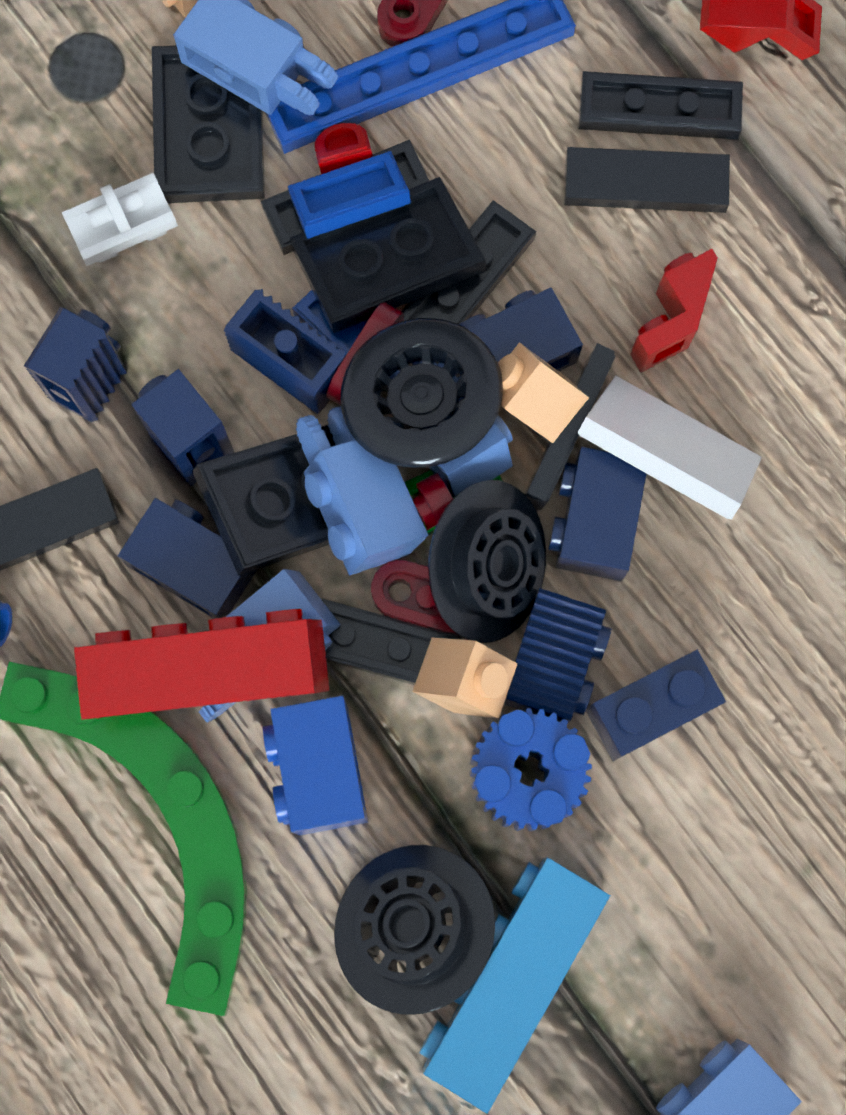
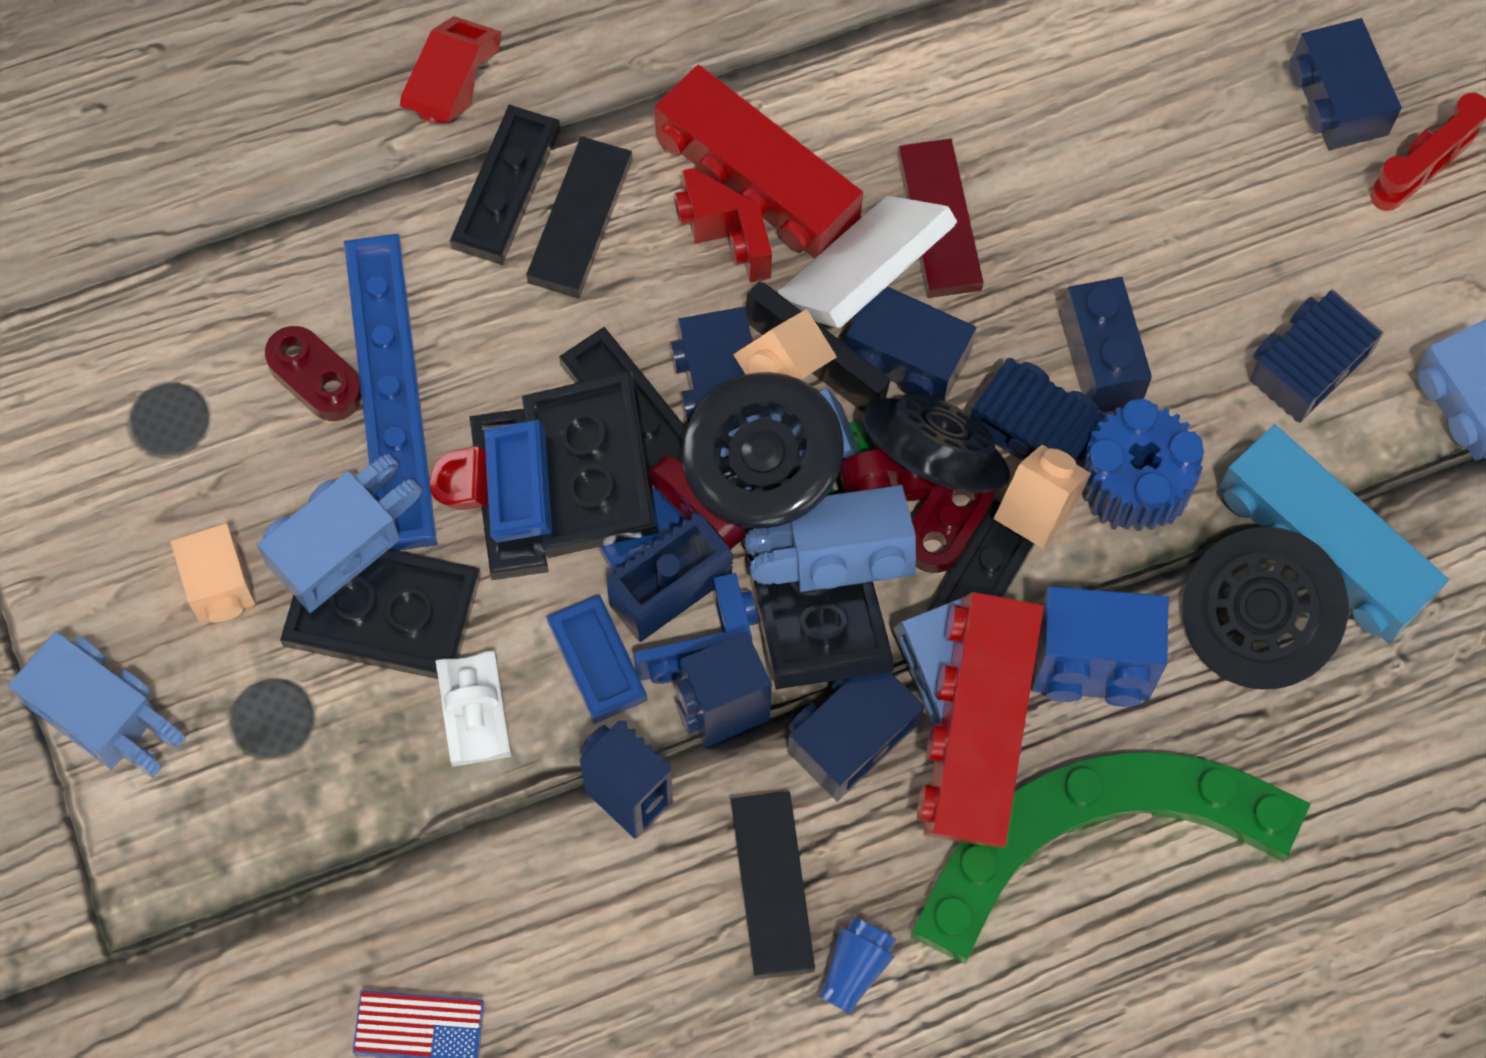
camera: 75 degrees left, 10 degrees down
(198, 320) = (596, 659): none -> blue tile
(259, 426) = (735, 614): none -> blue bracket
(714, 926) = (1314, 355): none -> dark blue brick
(753, 322) = (758, 160): none -> red brick
(767, 510) = (933, 177): none -> dark red tile

